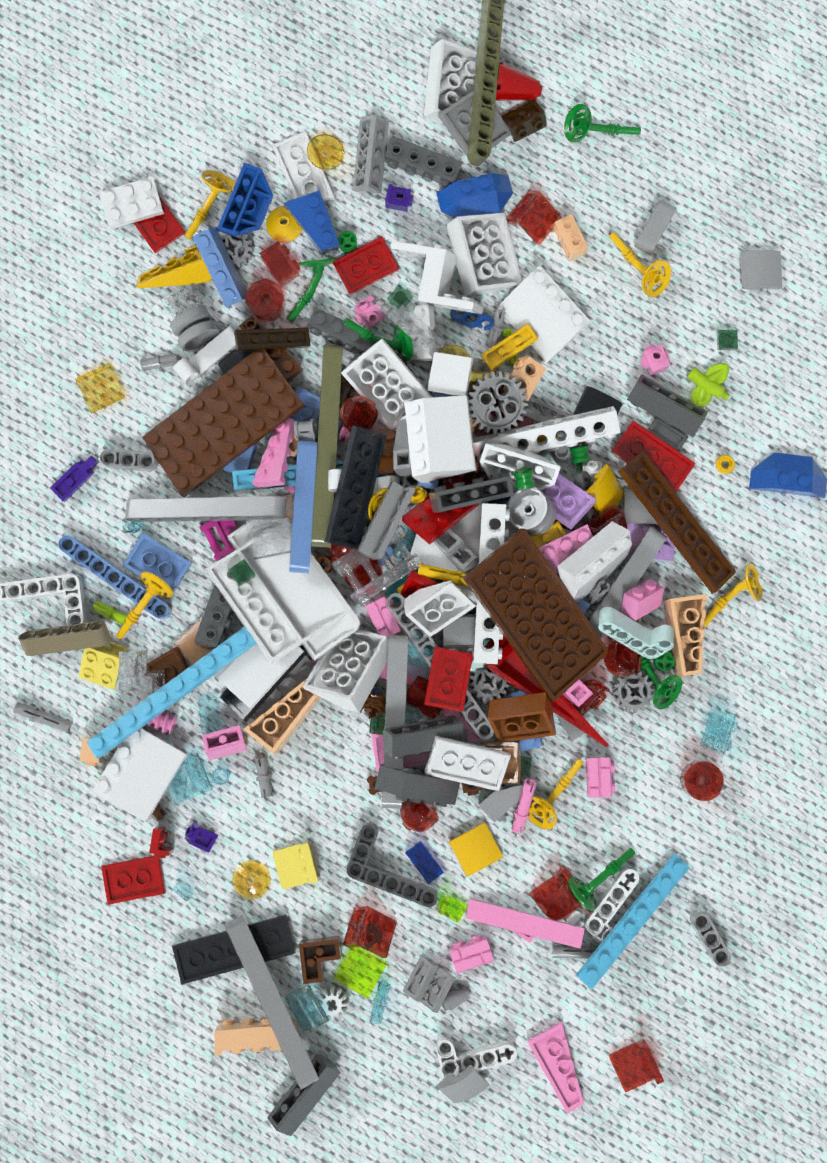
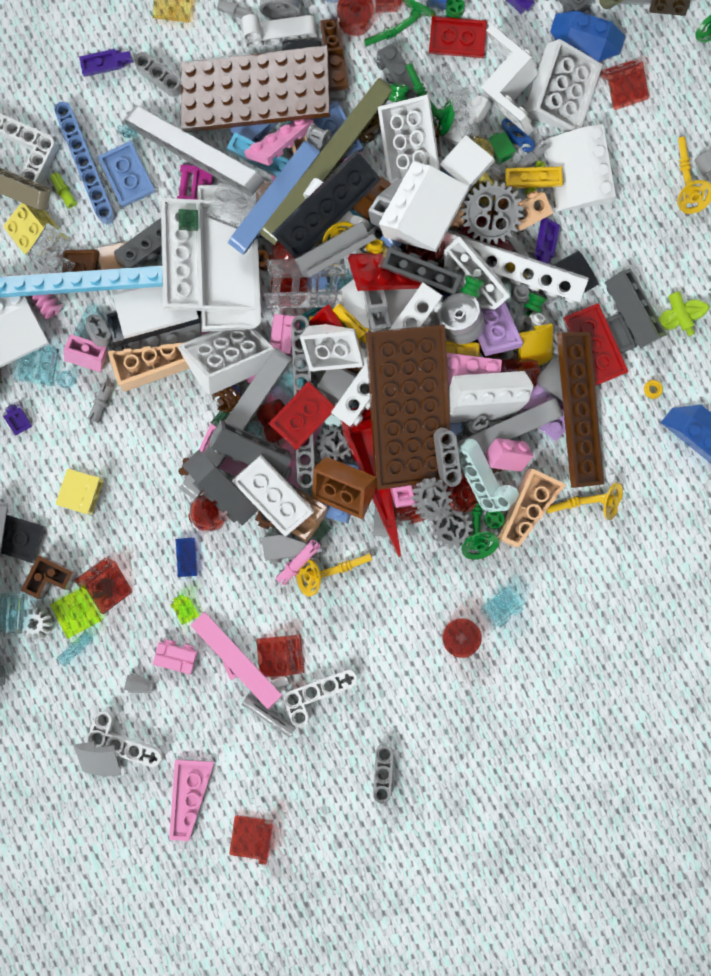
camera: 30 degrees right, 0 degrees up
(154, 586) = (110, 189): yellow dish -> none
(225, 713) = (102, 329): none -> light grey beam
(258, 872) = (45, 481): clear yellow dish -> none
(272, 338) = (339, 45): dark brown tile -> none
(350, 348) = (398, 92): none -> green wheel
(358, 412) = (372, 148): clear red cylinder -> none
(368, 313) = (433, 76): bright pink brick -> none
(384, 875) = (146, 546): dark grey beam -> none
(400, 297) = (469, 80): clear green plate -> none
(429, 984) = (125, 659): light grey slope -> none
(465, 338) = (502, 147): none -> green brick
(475, 849) = (235, 574): yellow slope -> none
(555, 395) = (547, 240): none -> dark purple hinge
(570, 237) = (644, 118): light nougat brick -> none
(583, 892) = (306, 665): green dish -> none
(587, 633) = (453, 463): none -> light grey beam
(599, 777) = (377, 580): bright pink brick -> none
(605, 679) = (431, 508): none -> light grey gear
(632, 921) = (326, 716): medium azure plate -> none
(655, 359) = (650, 264): bright pink brick -> none

